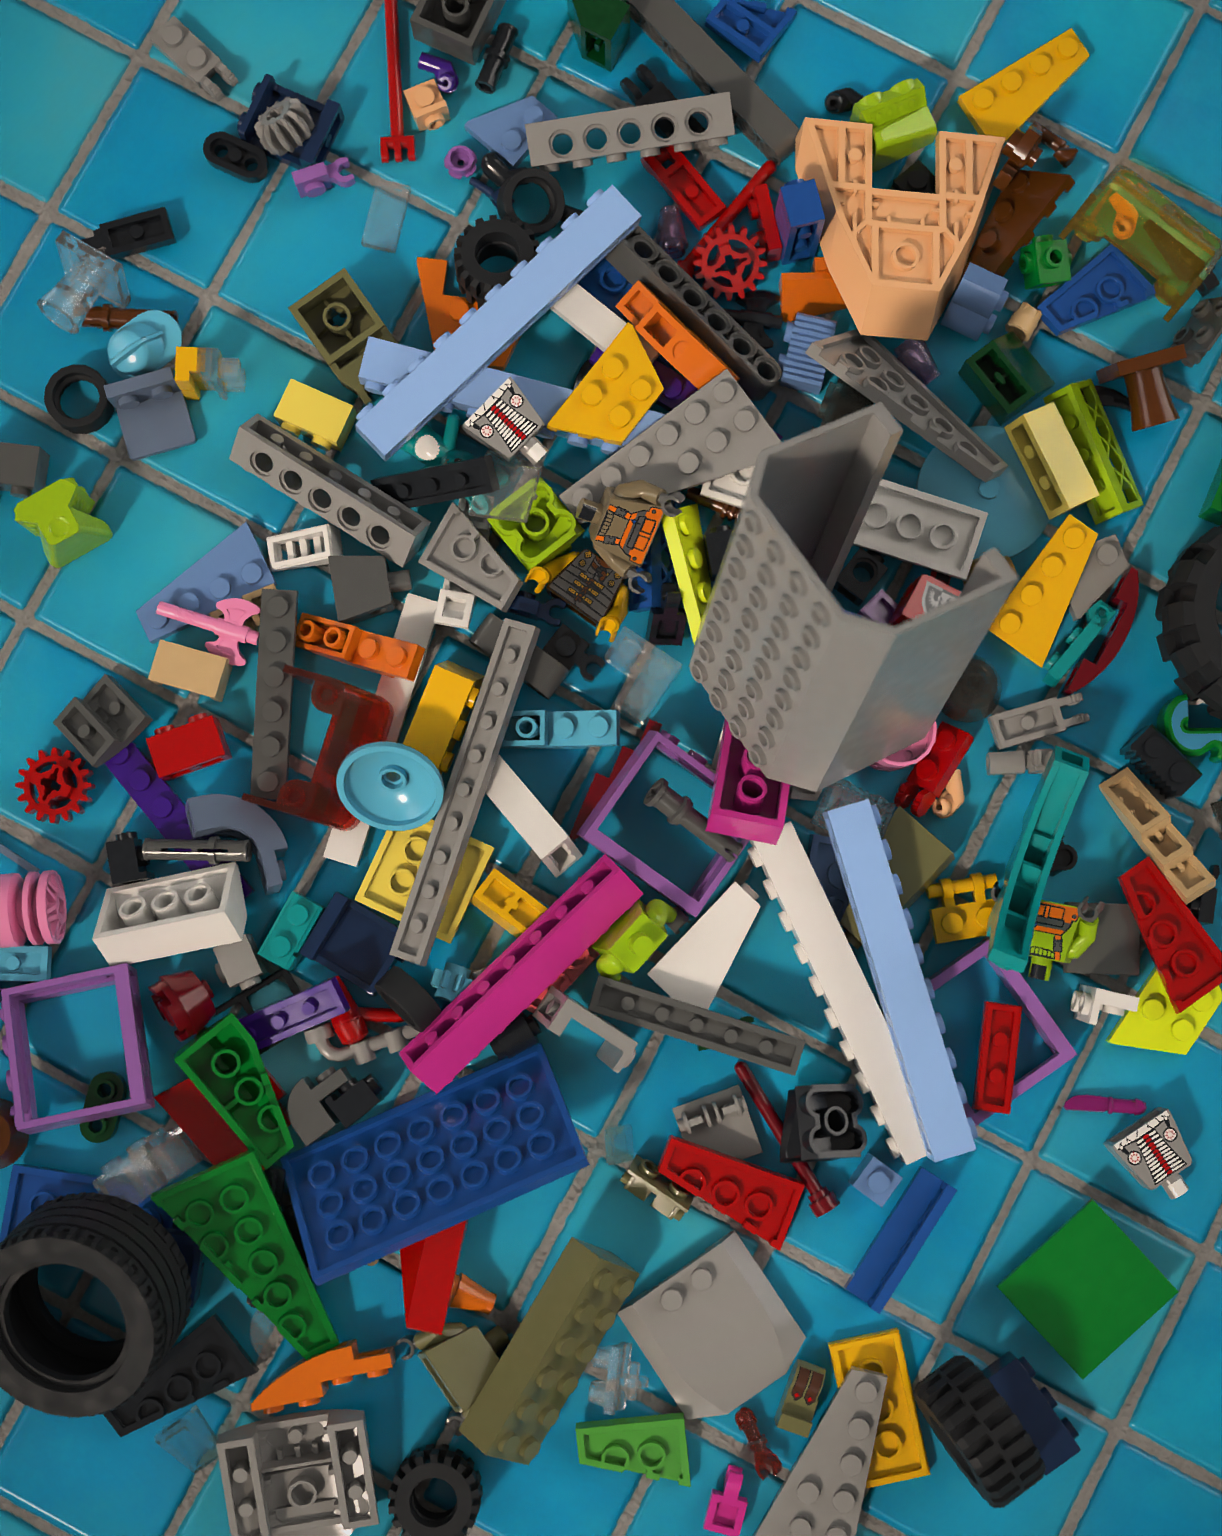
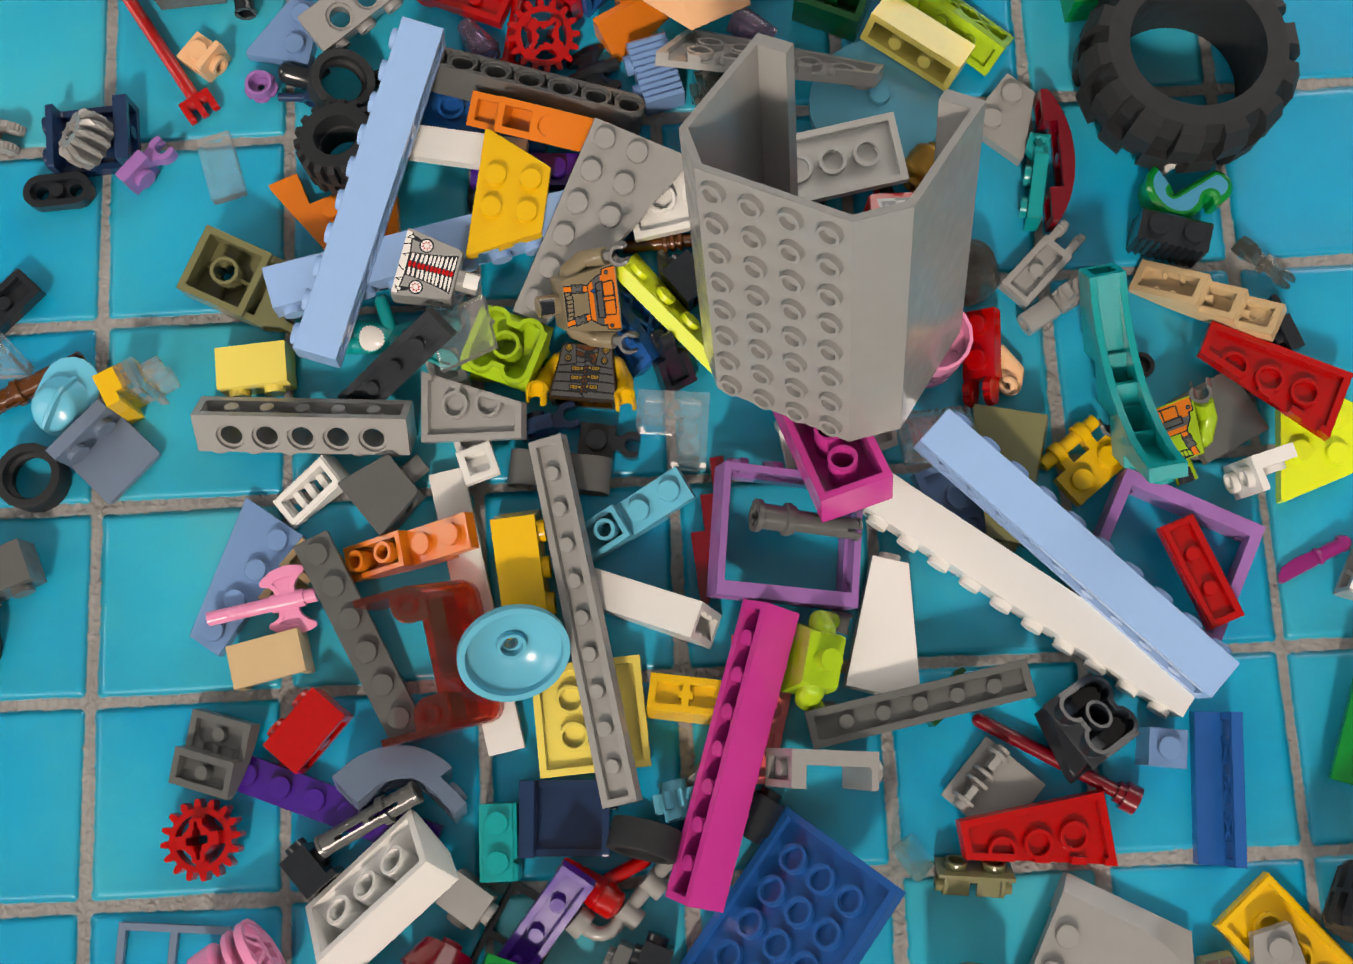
camera: 25 degrees left, 5 degrees down
(63, 521) = (75, 592): lime piece -> none
(442, 69) = (201, 21): dark purple arm -> none
(1044, 592) = (994, 184): yellow wing -> none

